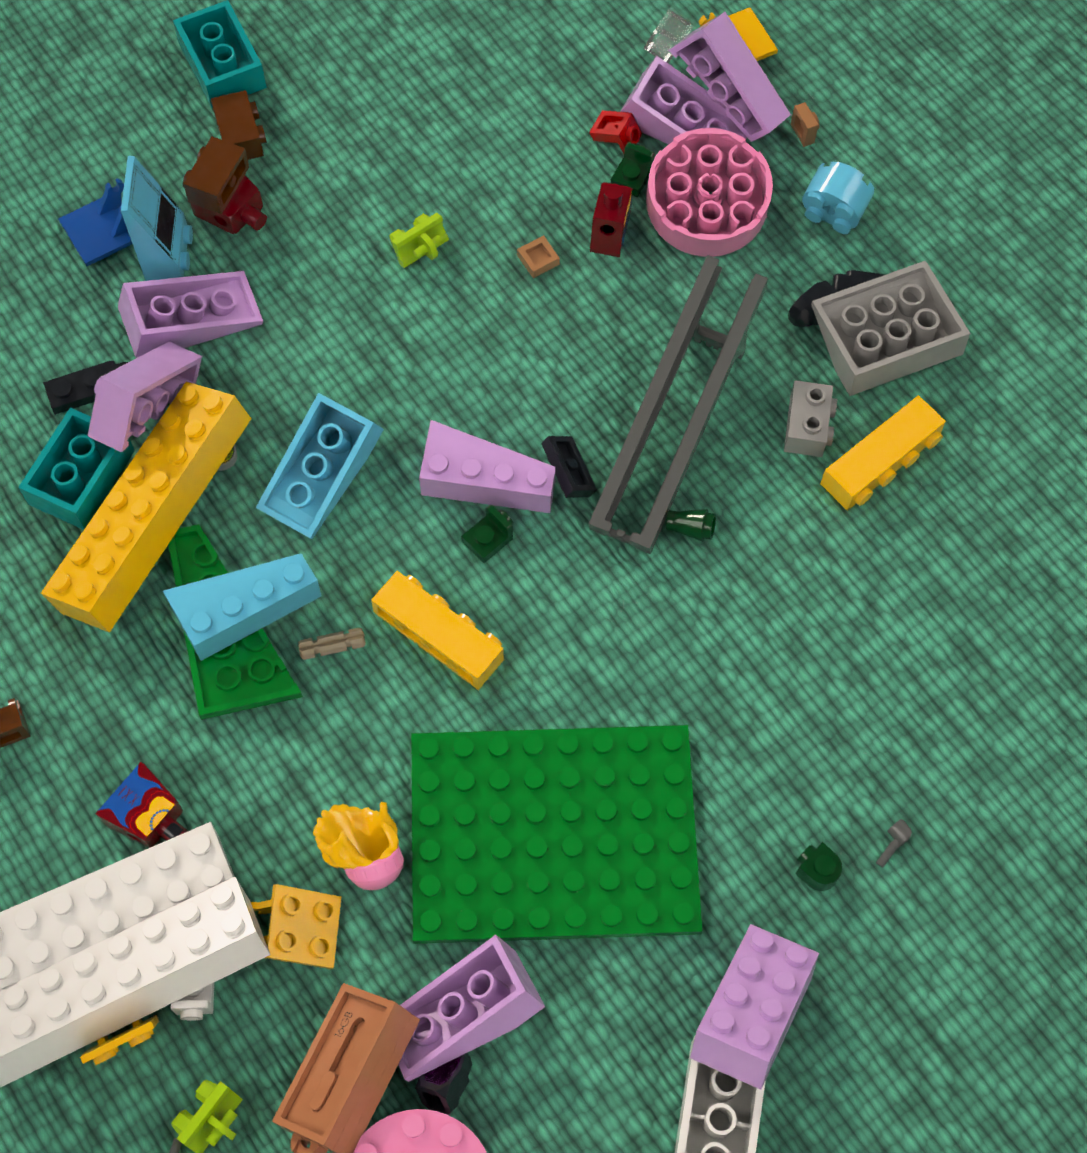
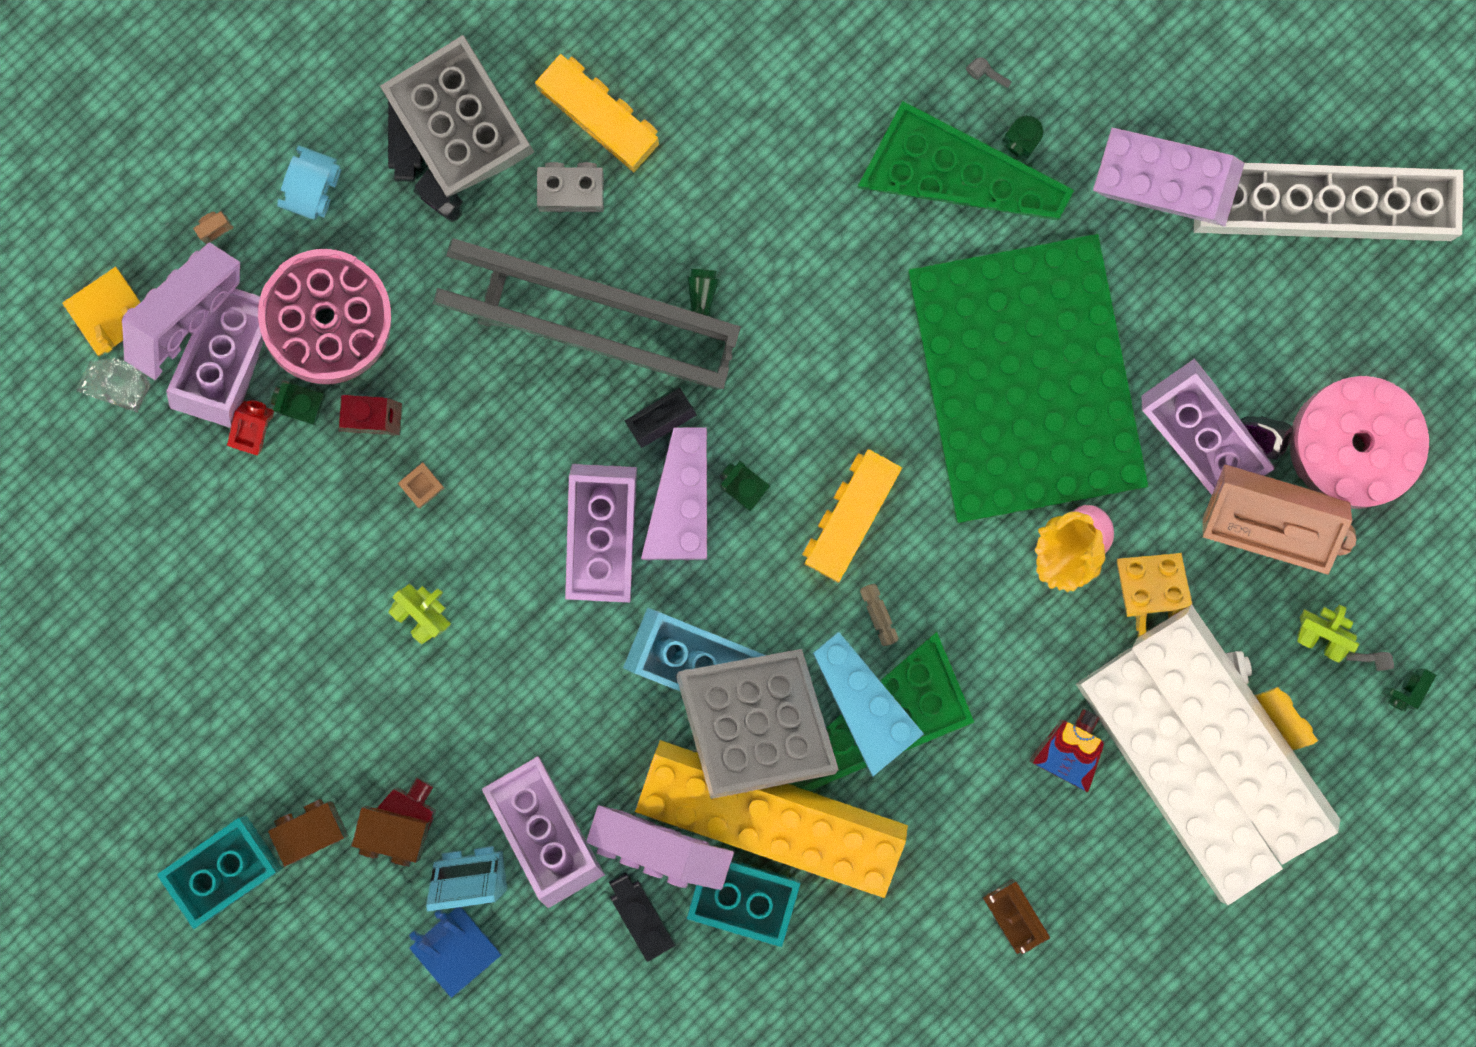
camera: 100 degrees left, 20 degrees up
(243, 495) = (756, 723): none -> light grey plate
(472, 398) = (600, 532): none -> lavender slope
(796, 781) = (945, 165): none -> green wing

